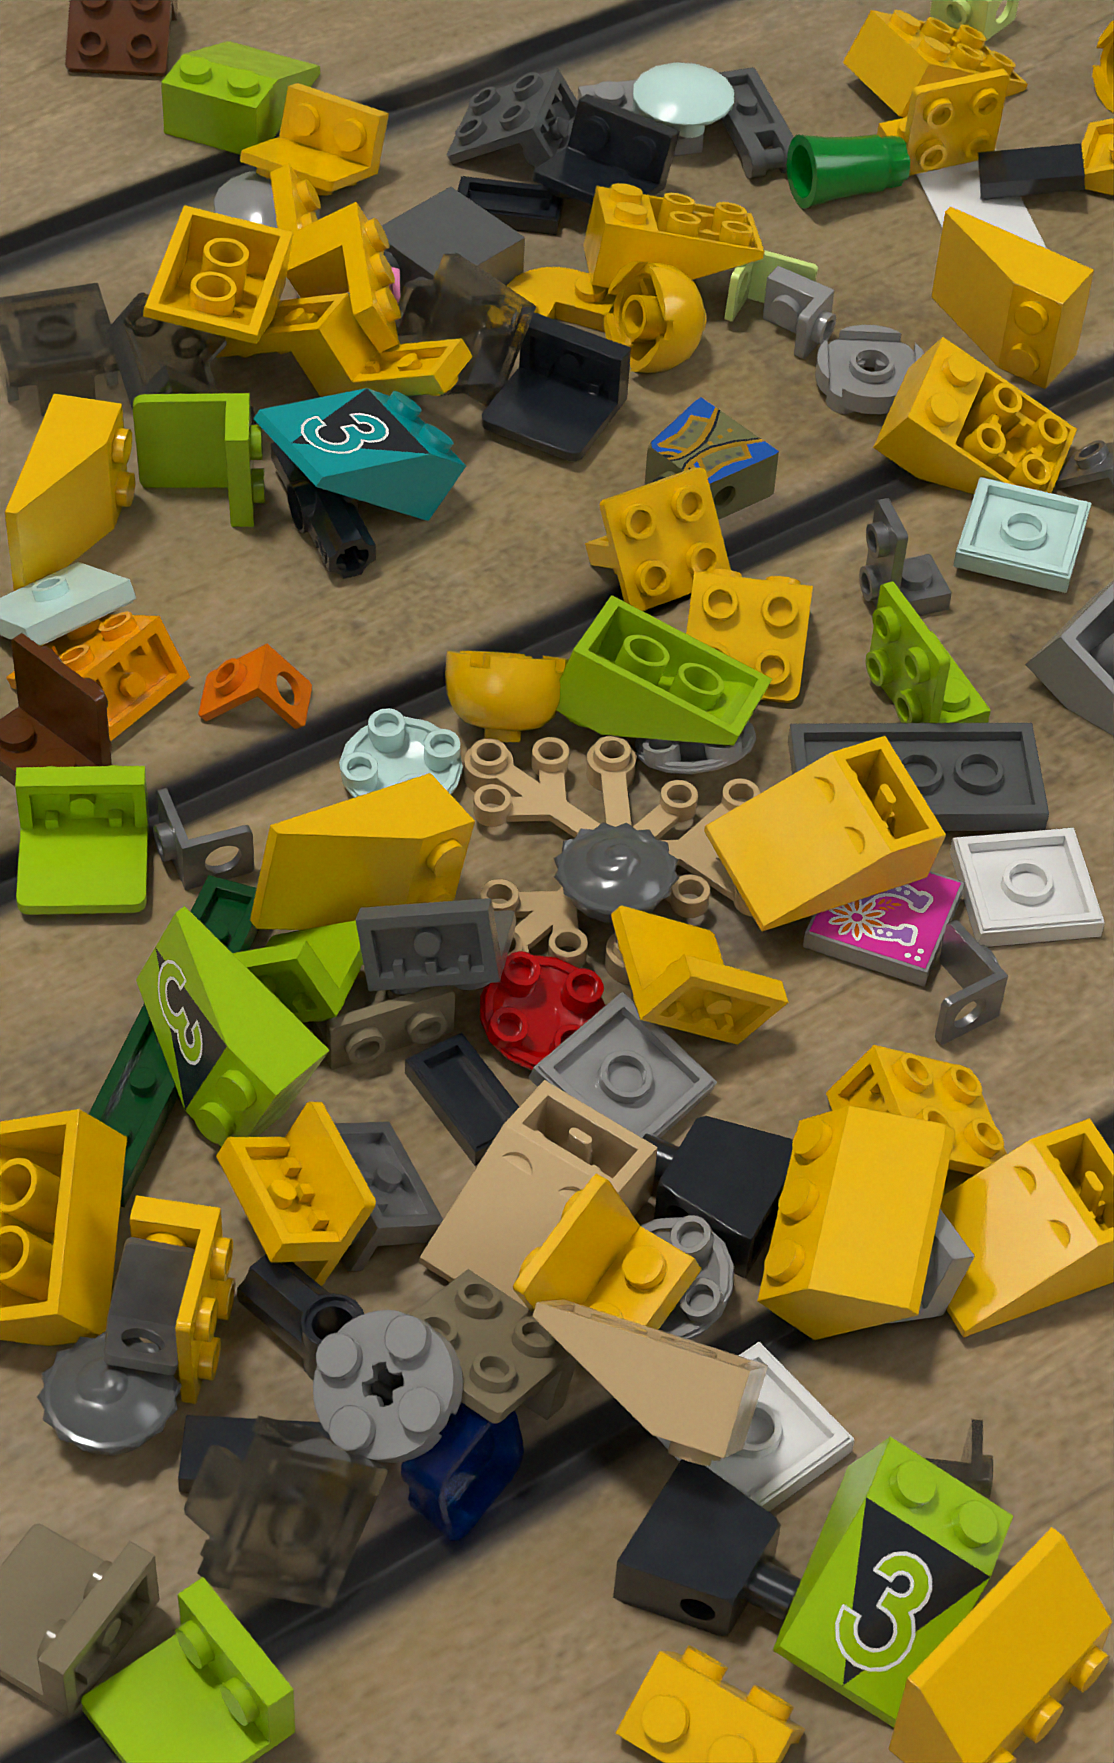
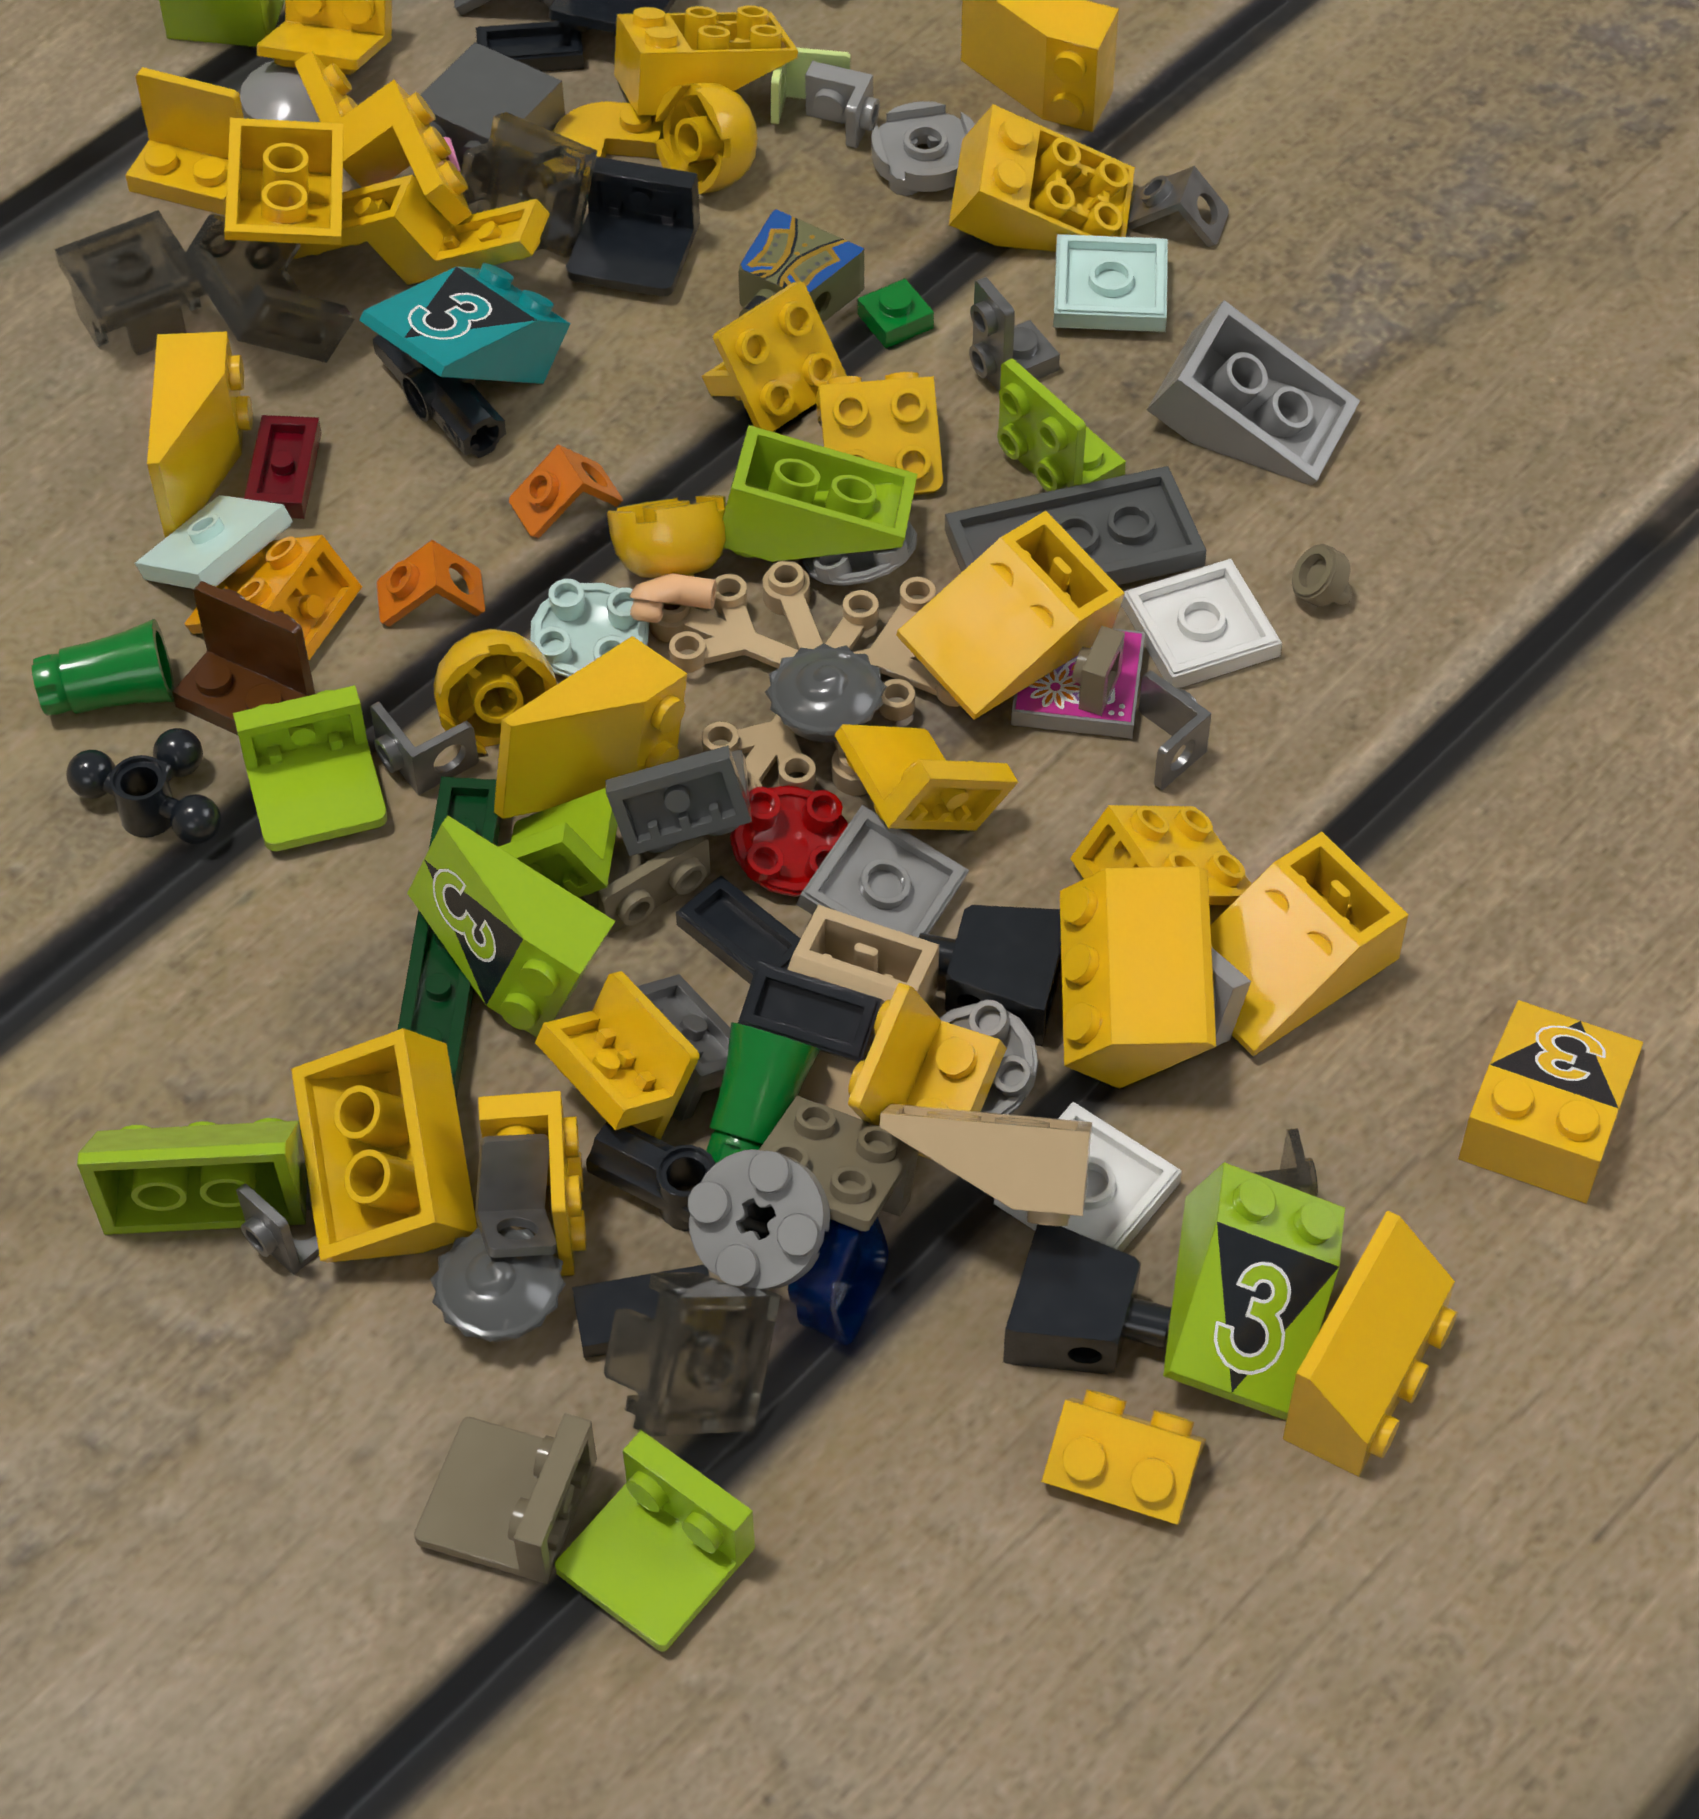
camera: 10 degrees left, 5 degrees up
(146, 213) = (186, 140): none -> yellow bracket
(150, 544) = (284, 462): none -> dark red plate
(201, 445) = (310, 354): lime bracket -> none
(279, 784) = (488, 680): none -> yellow cylinder
(408, 618) = (556, 486): none -> orange bracket
(431, 1250) = (756, 1088): none -> green plant
(492, 740) = (671, 589): none -> light nougat arm
(503, 1185) = (811, 1011): none -> black tile
(797, 522) = (895, 313): none -> green plate
(904, 908) = (1099, 669): none -> dark tan plate

